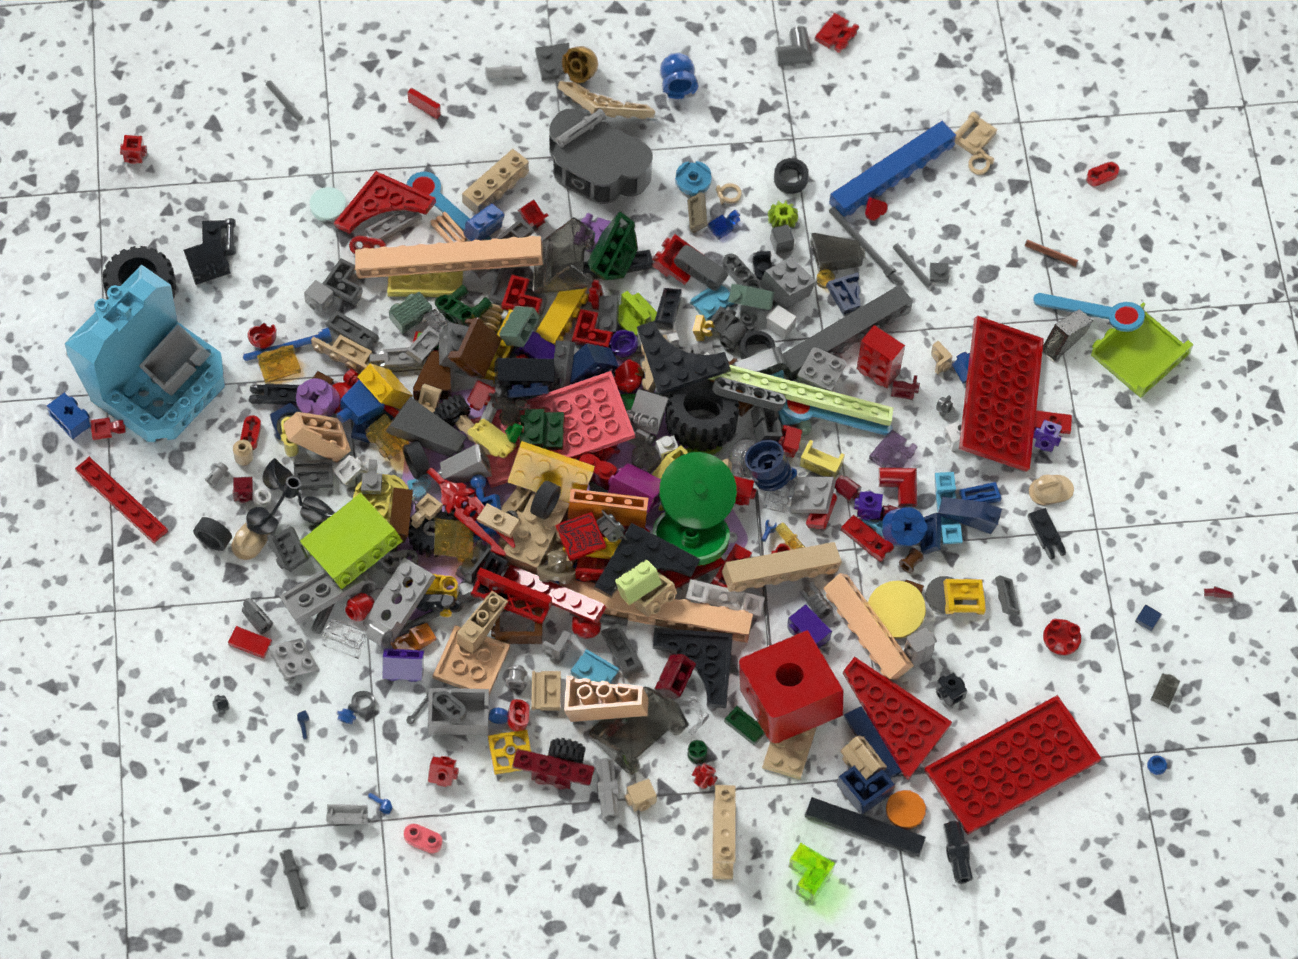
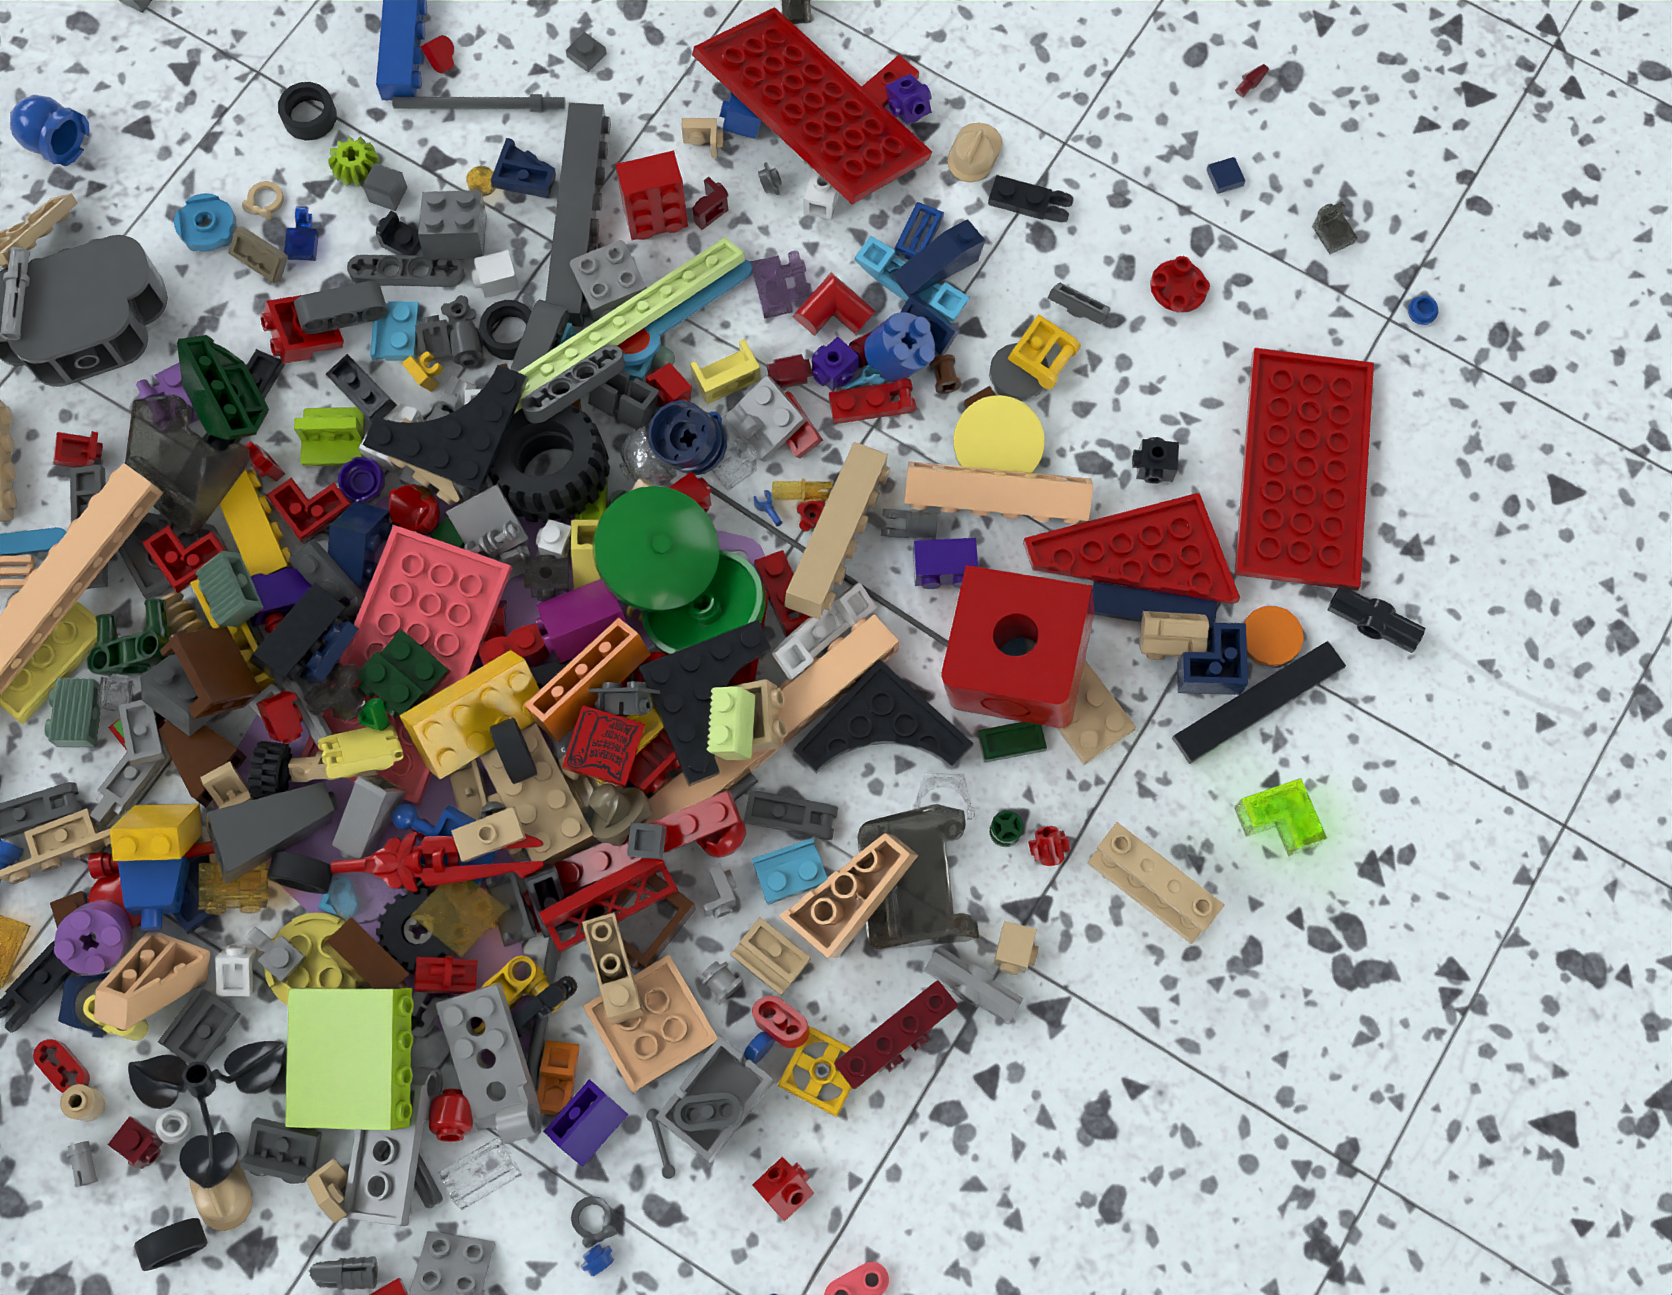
camera: 50 degrees left, 10 degrees up
(287, 579) = (326, 1188): none -> tan bracket
(420, 553) = (445, 975): none -> red hips
(428, 508) = (386, 915): tan plate -> none
(484, 223) = (34, 520): blue brick -> none
(551, 587) = (646, 841): none -> dark grey tile
(567, 750) = (886, 1000): black tyre -> none
(608, 313) = (303, 466): dark grey plate -> none
(675, 676) = (883, 777): dark red brick -> none
(751, 296) = (435, 279): sand green slope -> none
(836, 252) = (457, 141): clear smoke slope -> none
(912, 265) = (549, 73): dark grey bar -> none
(920, 647) = (1077, 450): light grey brick -> none

